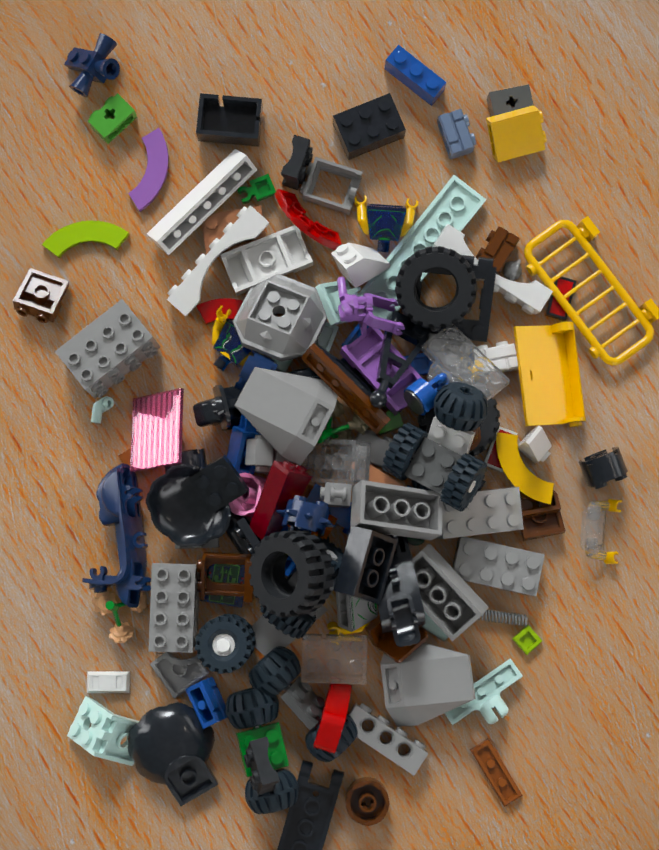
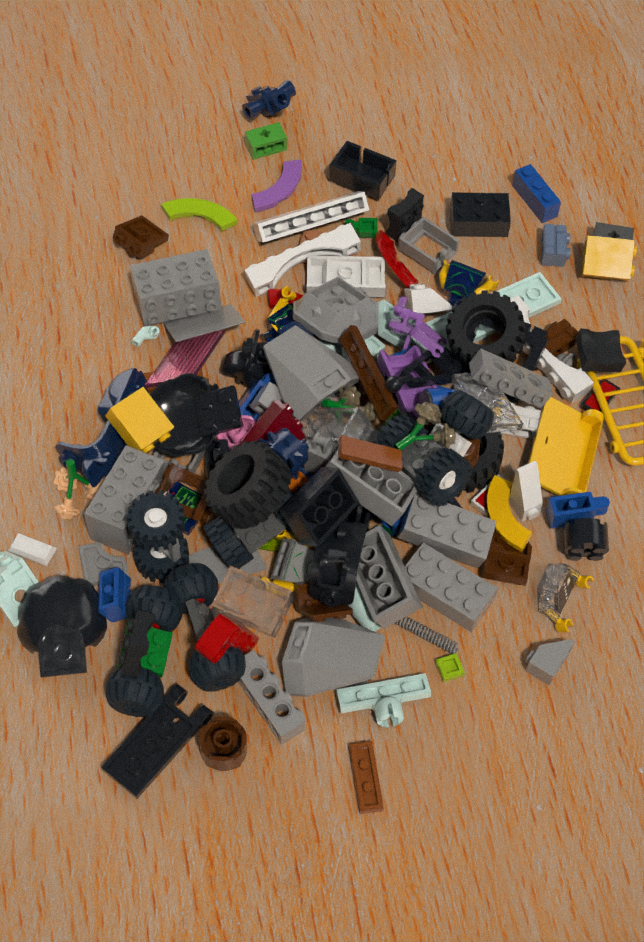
camera: 25 degrees right, 25 degrees down
(153, 532) = (140, 421): none -> yellow brick
(155, 378) = (203, 323): none -> light grey piece
(389, 492) = (369, 453): none -> dark orange tile
(430, 434) = (428, 413): none -> dark tan plant
(478, 332) = (510, 378): none -> light grey brick
(548, 254) = (600, 351): none -> black brick
(582, 438) = (574, 506): none -> blue brick
(611, 598) = (548, 659): none -> light grey slope

